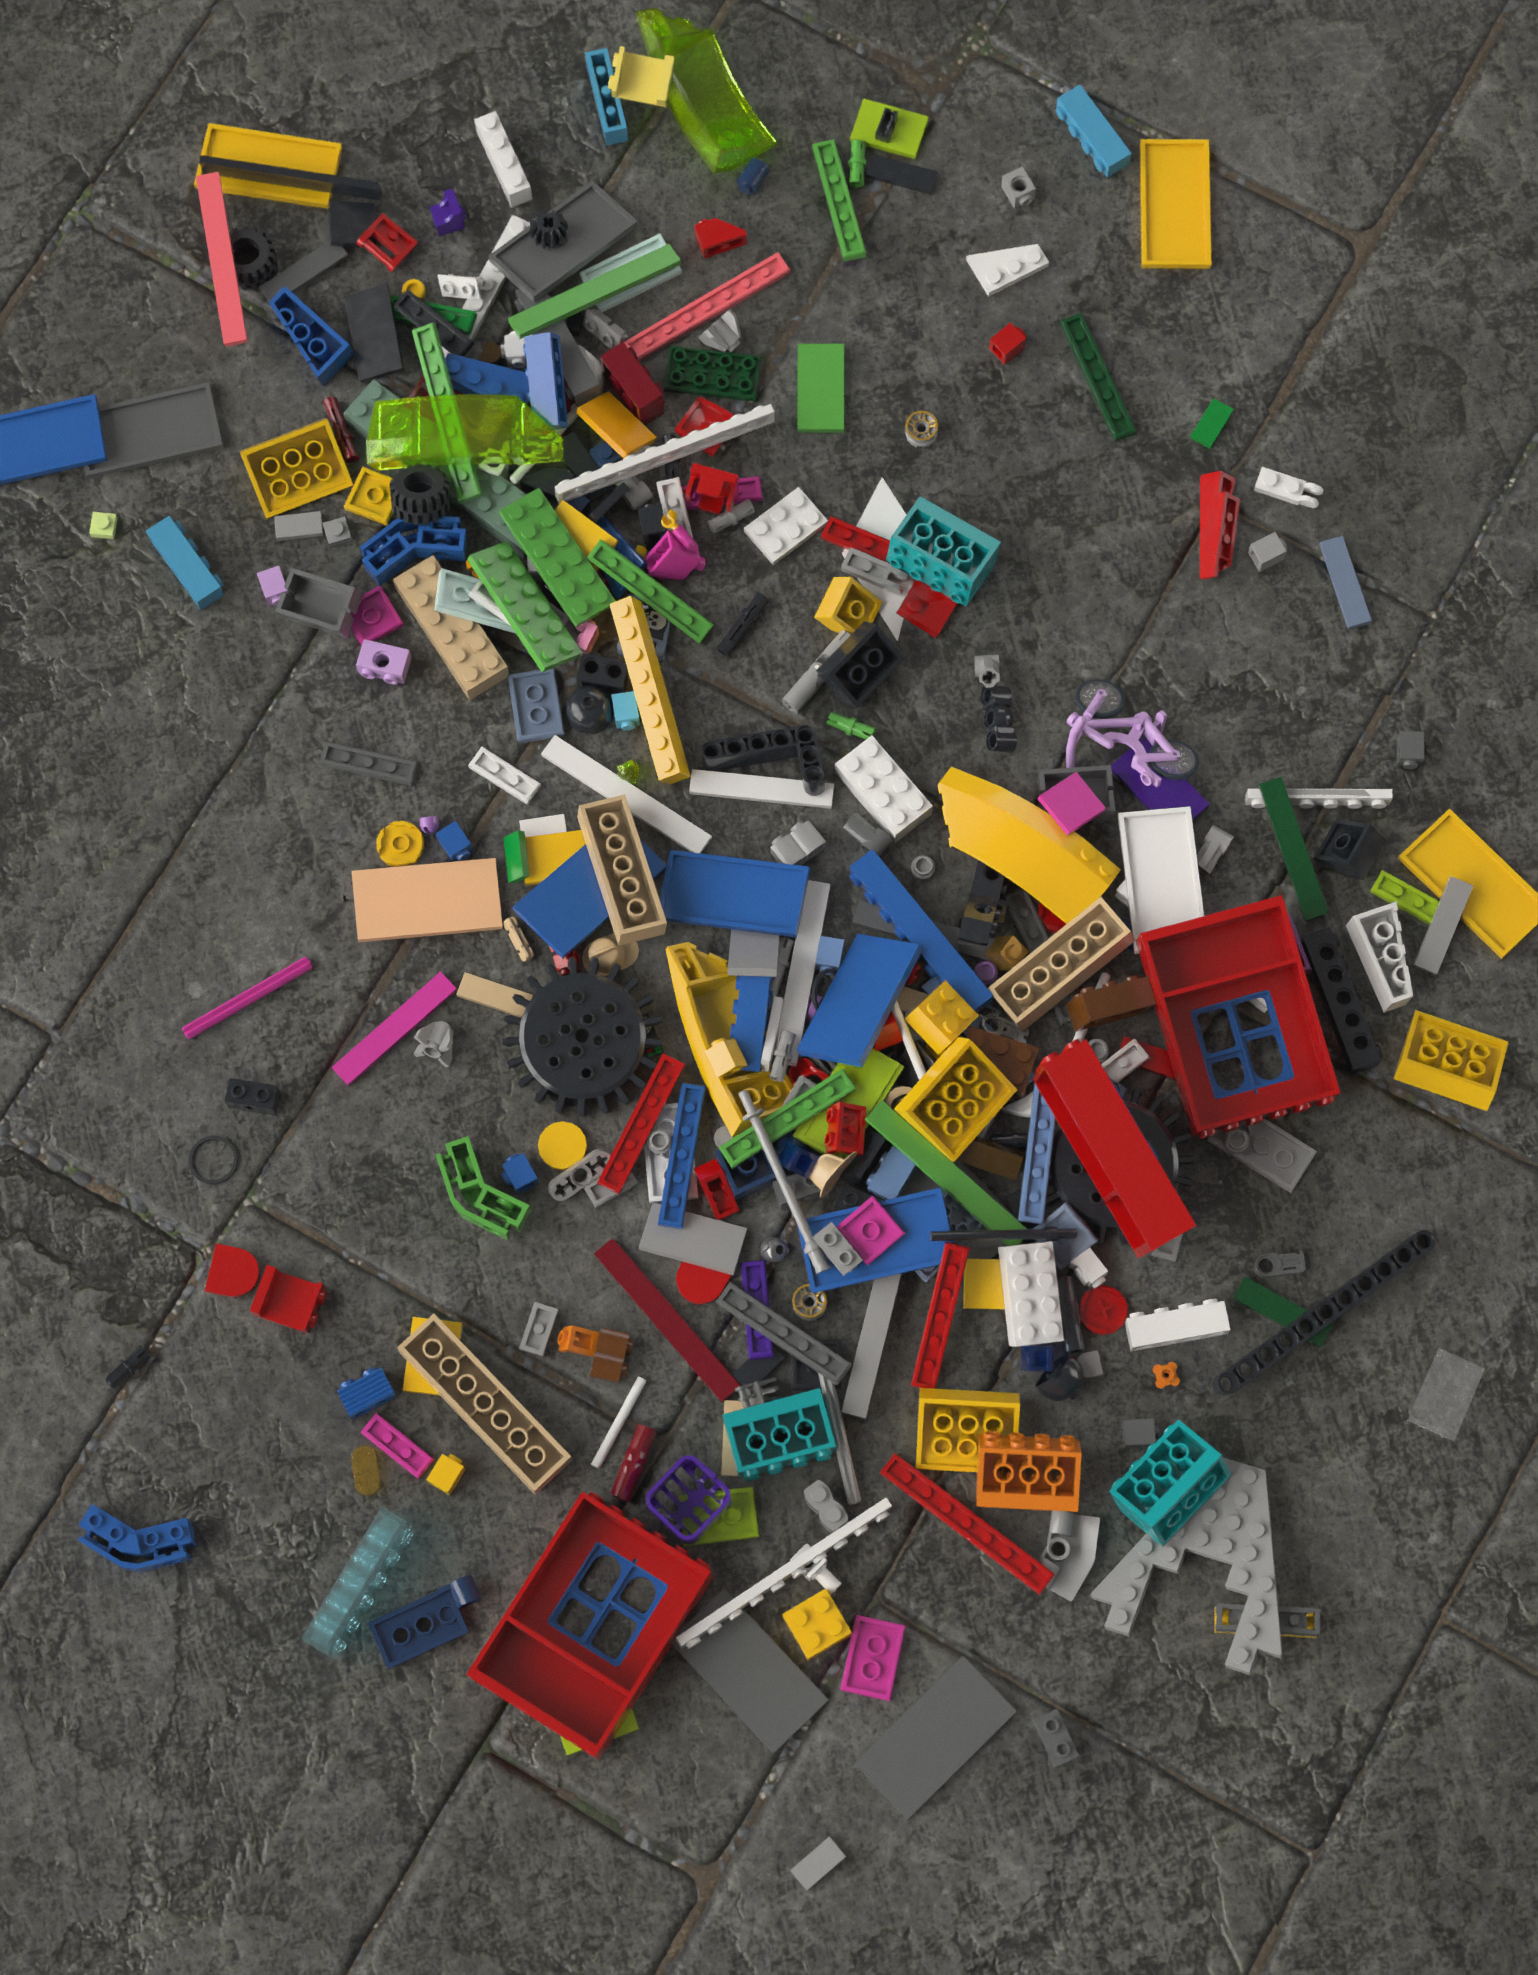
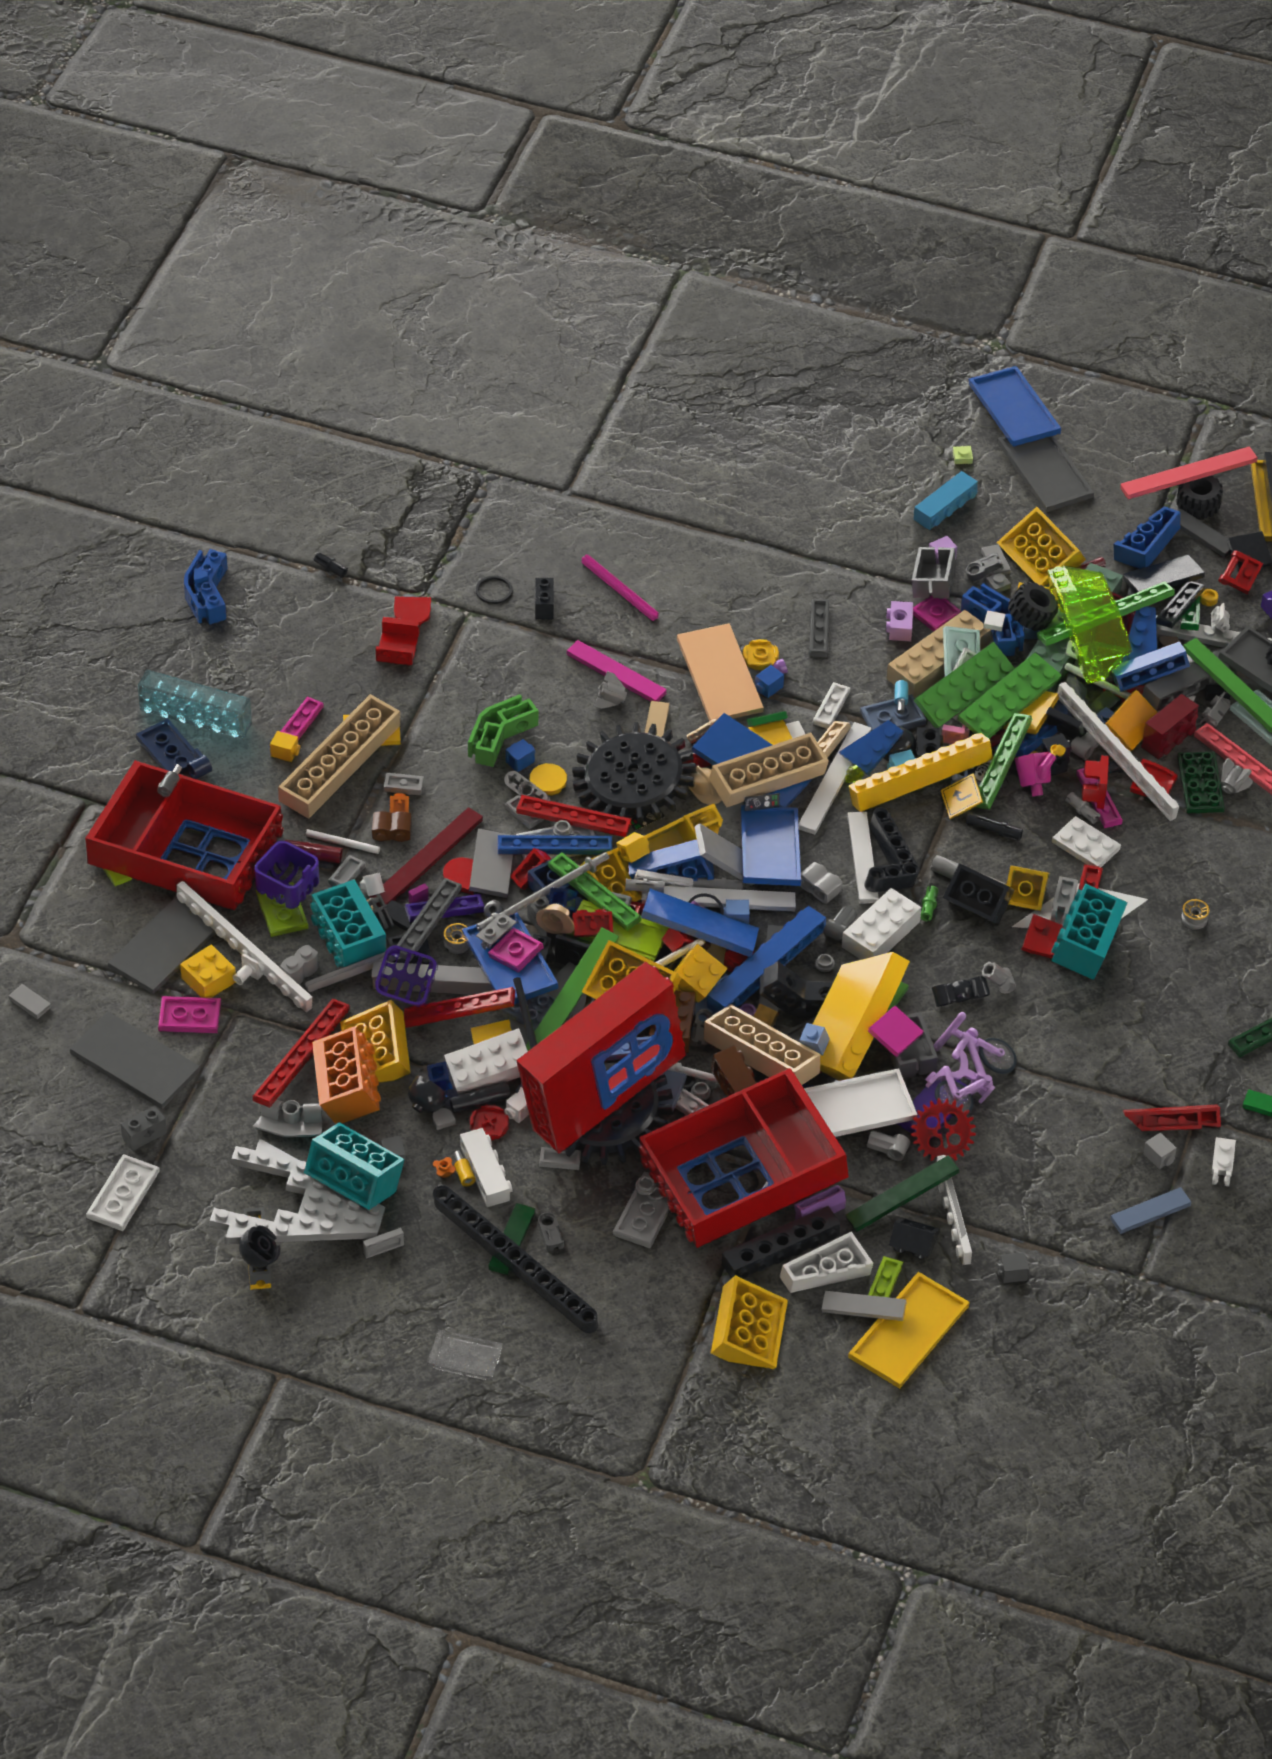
camera: 75 degrees right, 25 degrees down
(311, 539) = (985, 565): none -> dark grey piece
(365, 1470) = (280, 705): clear yellow tile -> none
(366, 1393) = (336, 693): blue brick -> none
(431, 546) = (994, 621): none -> white tile
(516, 687) = (901, 695): none -> medium azure piece
(521, 1631) = (169, 782): none -> dark grey piece
(563, 786) = (833, 736): none -> tan tile
(602, 739) = (872, 747): none -> blue wing
(662, 888) = (762, 802): none -> black sticker
(672, 1424) = (347, 871): none -> light grey tile
(673, 499) = (1070, 773): white tile -> none
(691, 651) = (961, 796): none -> yellow piece
(714, 1394) = (372, 884): none -> white piece
(732, 1339) = (419, 894): none -> magenta tile
(820, 388) = (1210, 849): bright green tile -> none
(875, 1363) = (403, 975): none -> dark purple piece
(891, 1176) = (562, 965): medium blue brick -> none
(1072, 899) = (815, 1038): none -> medium blue brick
(1144, 1777) = (122, 1192): none -> white tile
(1174, 1352) = (464, 1170): none -> yellow piece
(1219, 765) = (961, 1127): none -> red gear
(1274, 1465) = (383, 1243): none -> light grey tile
(1299, 1616) = (259, 1247): none -> black cylinder

